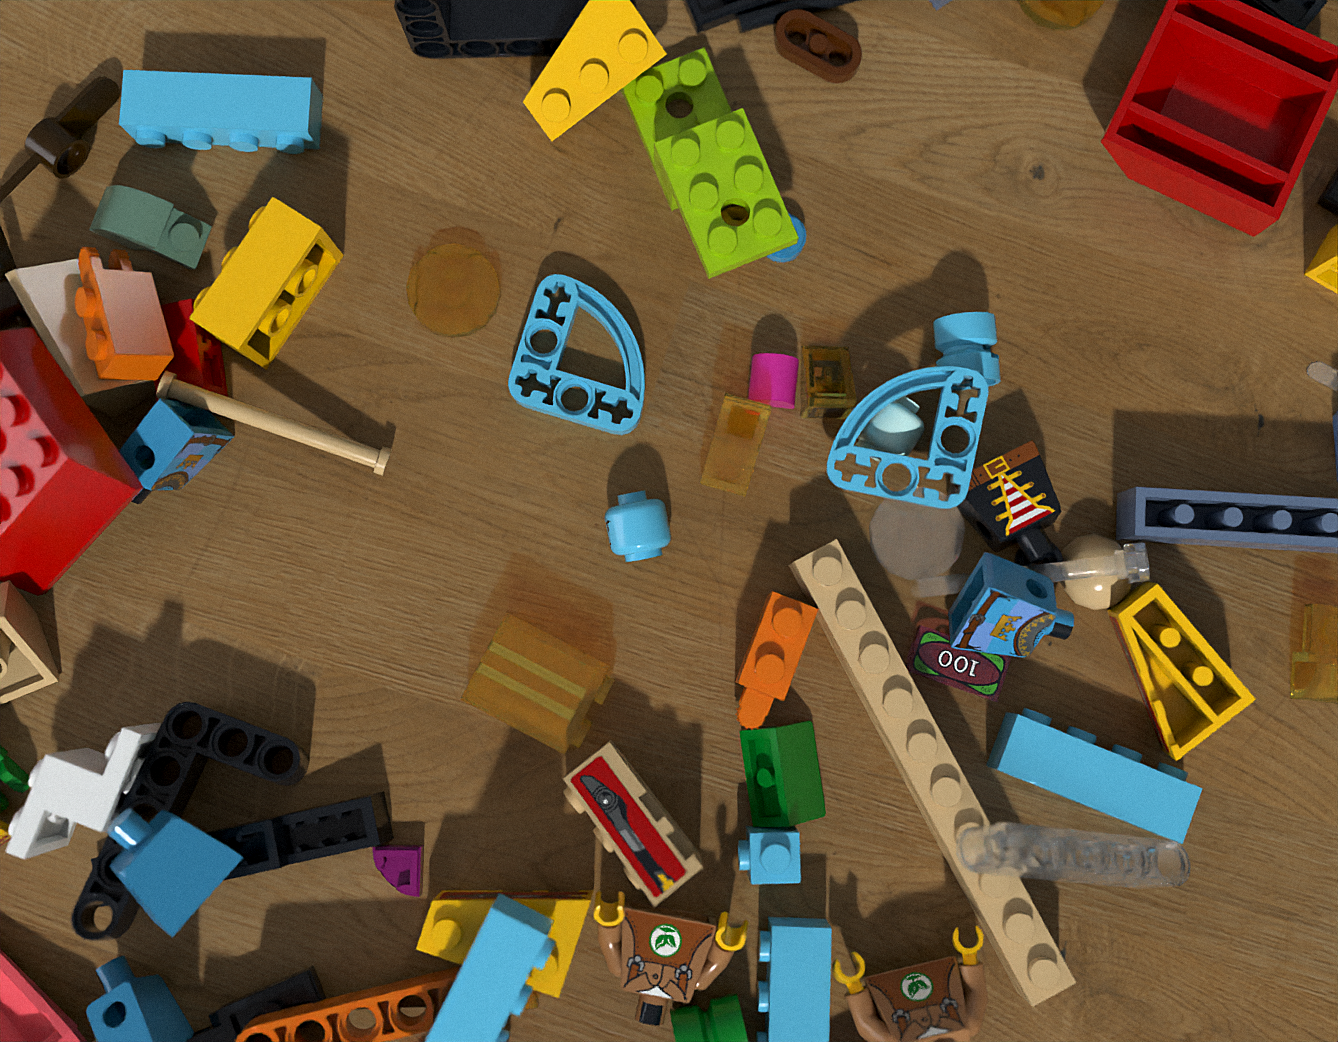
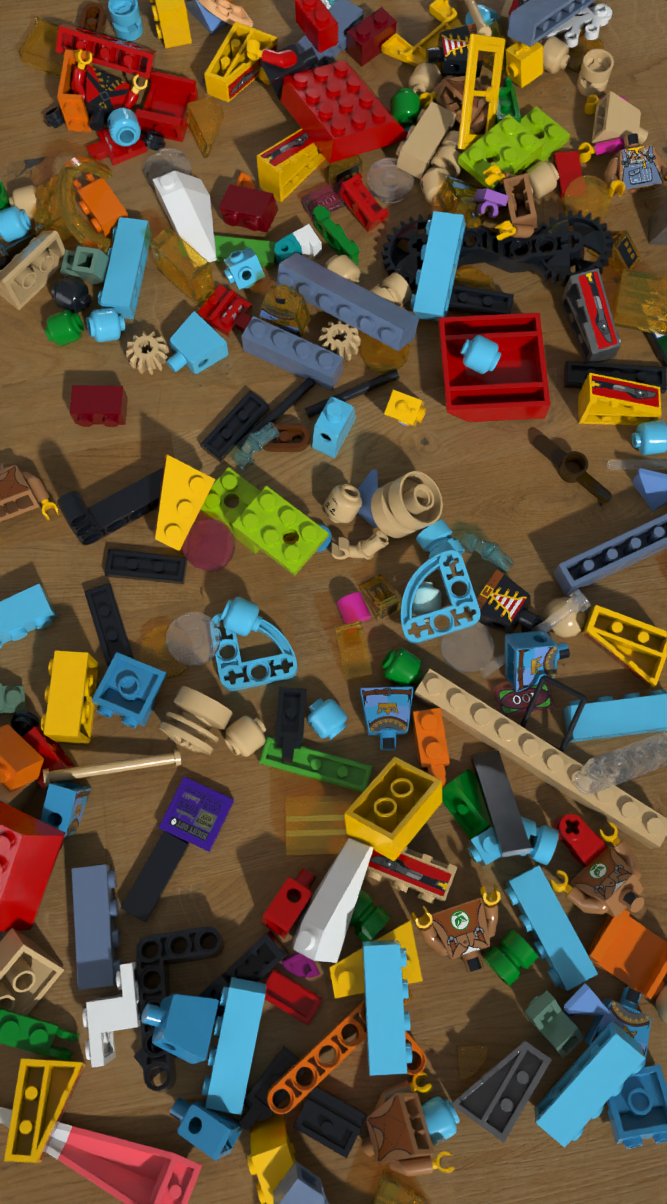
camera: 25 degrees left, 10 degrees down
(131, 644) = (95, 926): none -> sand blue brick
(180, 282) = (19, 719): none -> black plate
(238, 930) = (236, 1045): none -> medium azure brick
(257, 619) = (154, 876): none -> black tile
(360, 903) = (291, 997): none -> red tile
(362, 319) = (128, 690): none -> dark azure plate
(366, 562) = (196, 814): none -> dark purple tile
(389, 200) = (108, 622): none -> black tile
(406, 783) = (282, 913): none -> red torso
(433, 423) = (195, 721): none -> tan wheel
(485, 813) = (330, 908): none -> white wedge
(492, 139) = (146, 566): none -> black tile
(499, 485) = (245, 736): none -> tan head
(501, 292) = (193, 639): none -> clear tile
(528, 852) = (367, 918): none -> green wheel
(579, 501) = (290, 721): none -> black hinge
(583, 587) = (319, 766): none -> bright green tile
(591, 297) = (241, 616): none -> medium azure head
(606, 157) = (209, 545): none -> clear pink tile
(658, 722) = (393, 808): none -> yellow brick
(733, 569) = (387, 713): none -> torso
(764, 30) = (255, 443): none -> clear light blue piece
(796, 512) = (402, 667): none -> green head
(826, 806) = (500, 804): none -> black tile
(841, 294) = (363, 549): none -> tan piece
(850, 203) = (343, 503): none -> tan head
(855, 898) = (543, 842): none -> medium azure wheel
(890, 216) = (366, 491): none -> medium blue slope
(911, 63) = (334, 422): none -> medium azure torso
(918, 926) = (582, 842): none -> red piece
(949, 259) = (406, 504): none -> tan wheel
(967, 30) = (355, 391): none -> black bar
(1017, 742) = (576, 716): none -> black piece
(1035, 400) = (488, 551): none -> clear light blue piece
(1037, 100) = (405, 409): none -> yellow head
(1214, 72) = (480, 354): none -> medium azure head
(1240, 313) = (560, 457): none -> dark brown piece

